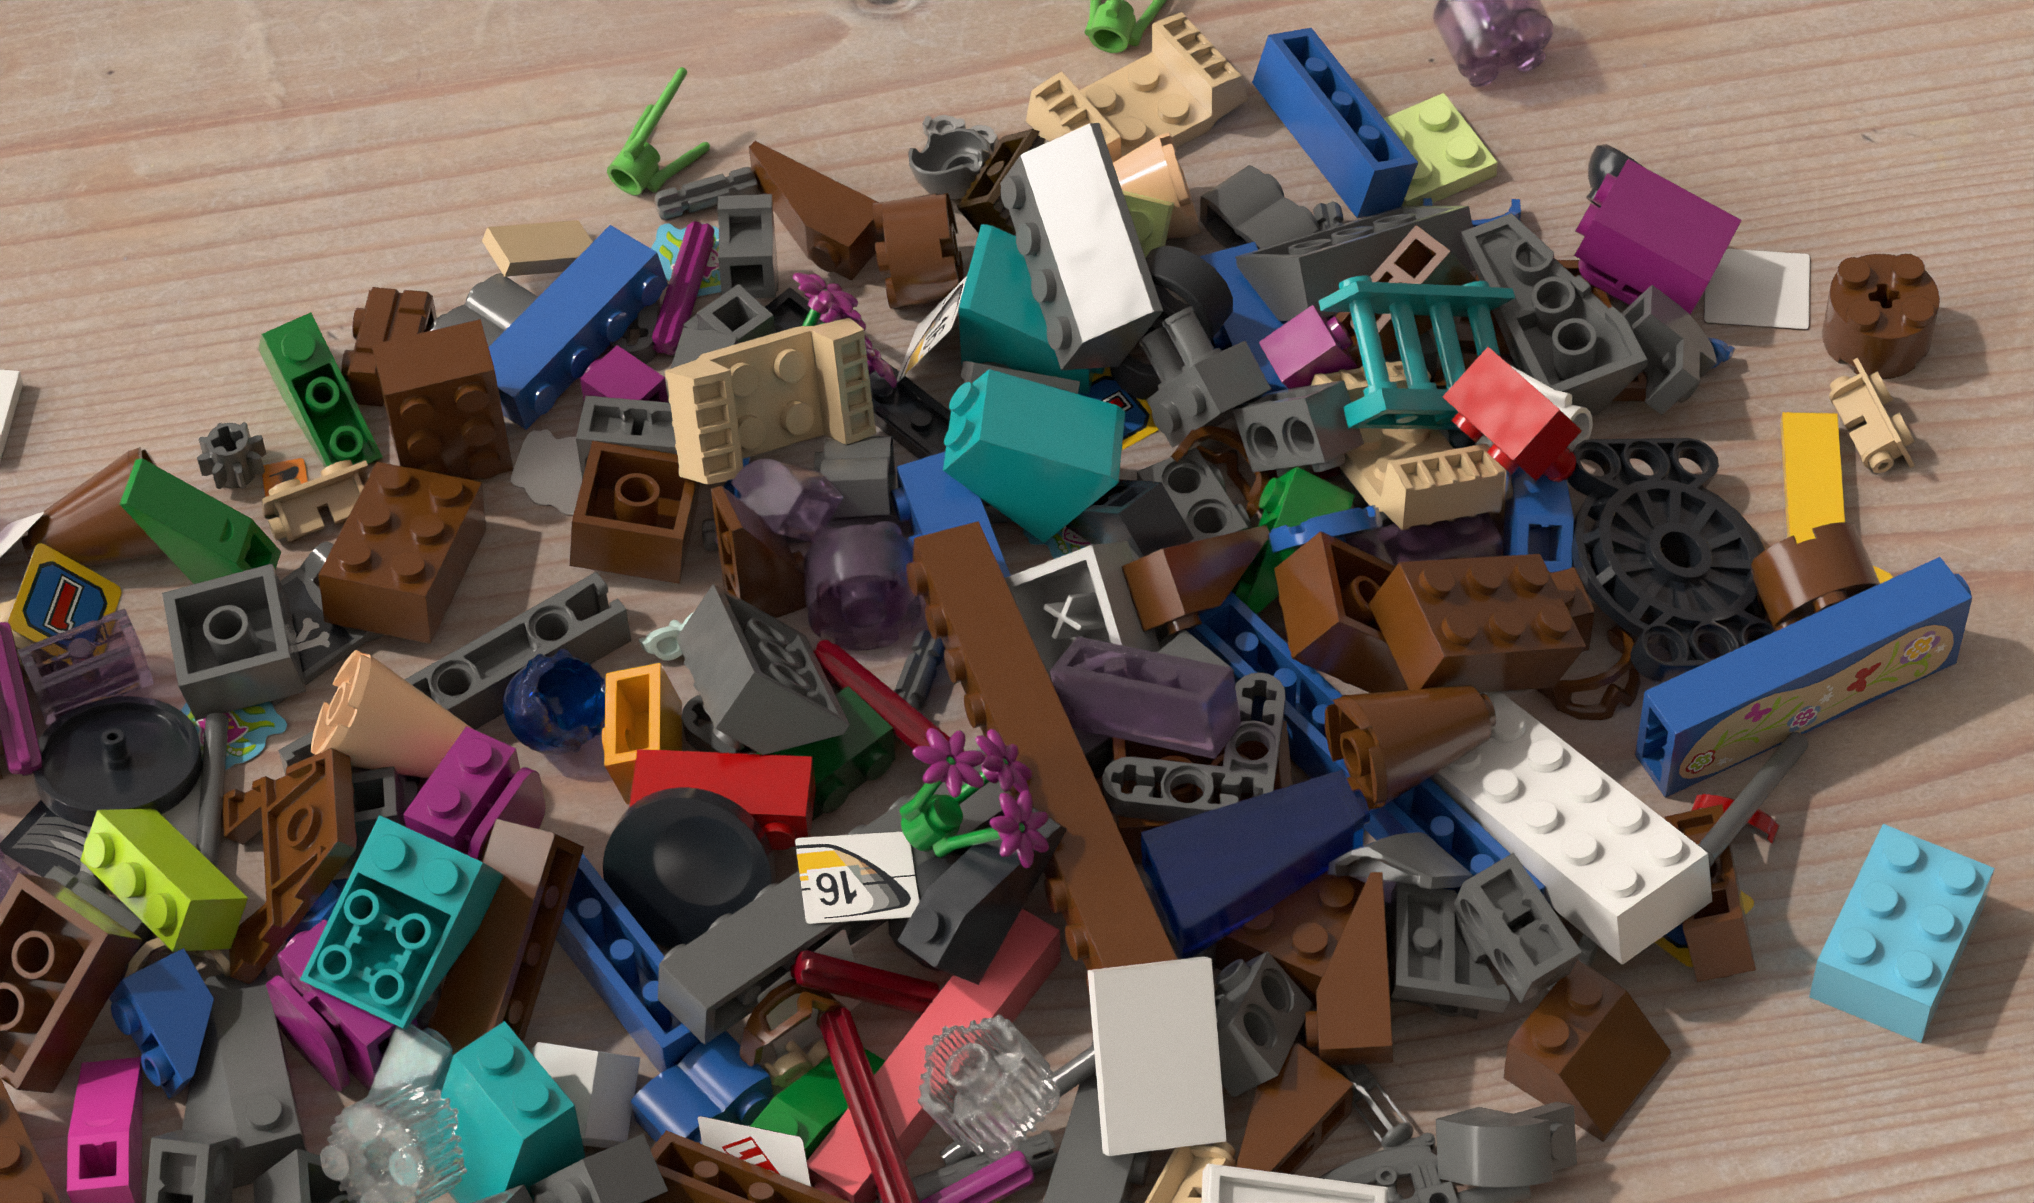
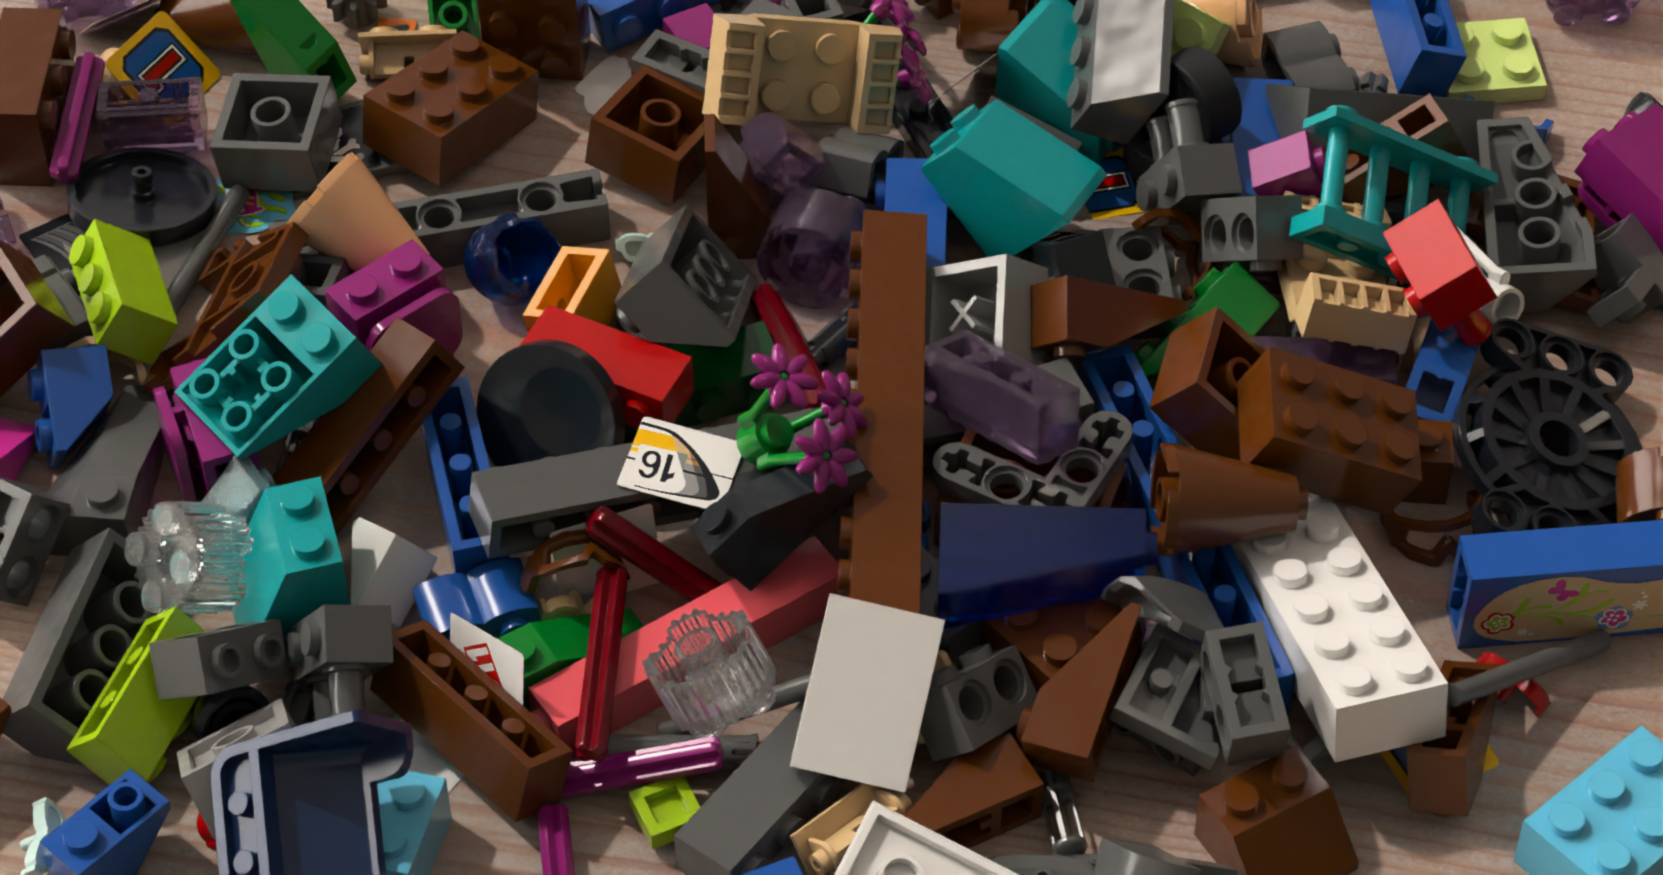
camera: 20 degrees right, 5 degrees down
(1337, 524) = (1248, 312): blue plate -> none

